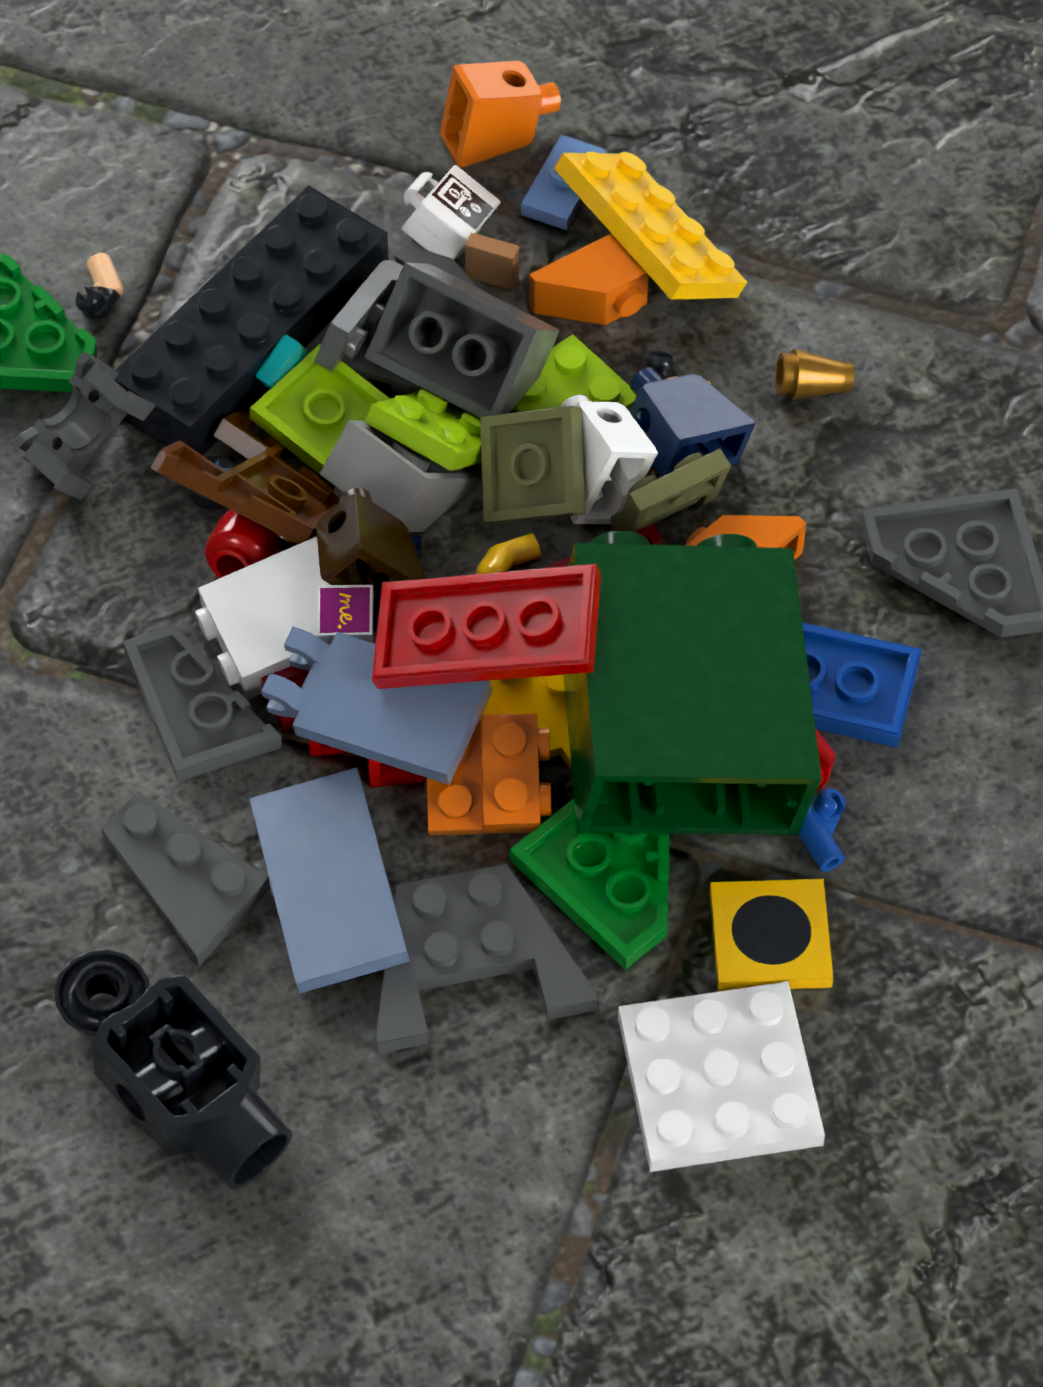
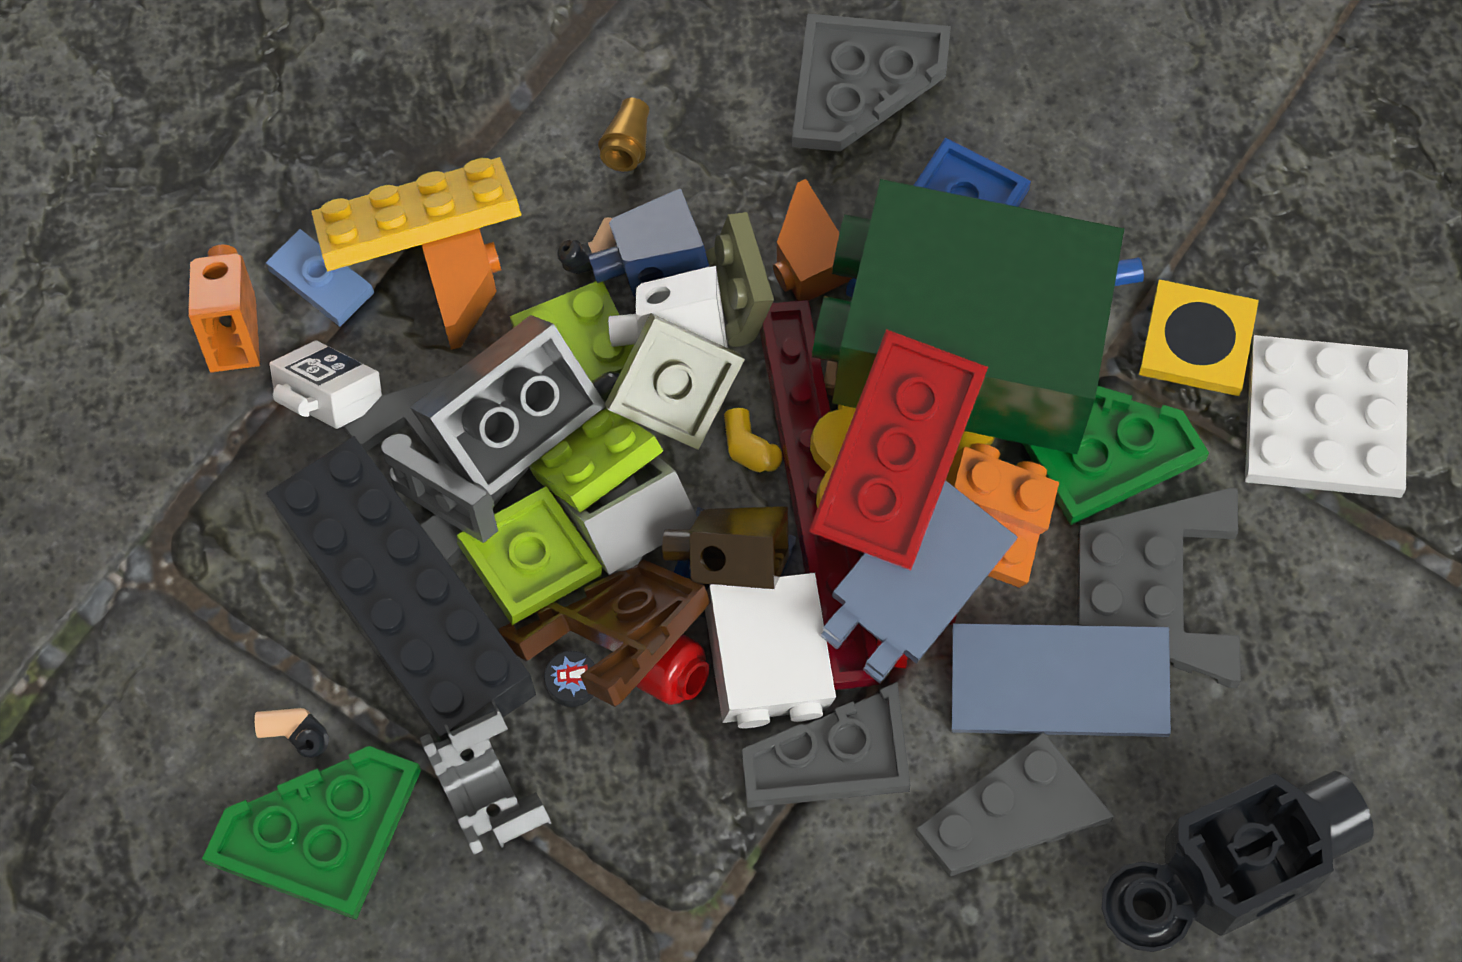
camera: 70 degrees left, 10 degrees up
(281, 361) = (469, 573): teal tile -> none
(345, 610) = (806, 582): magenta tile -> none
(492, 261) = (401, 360): medium nougat tile -> none

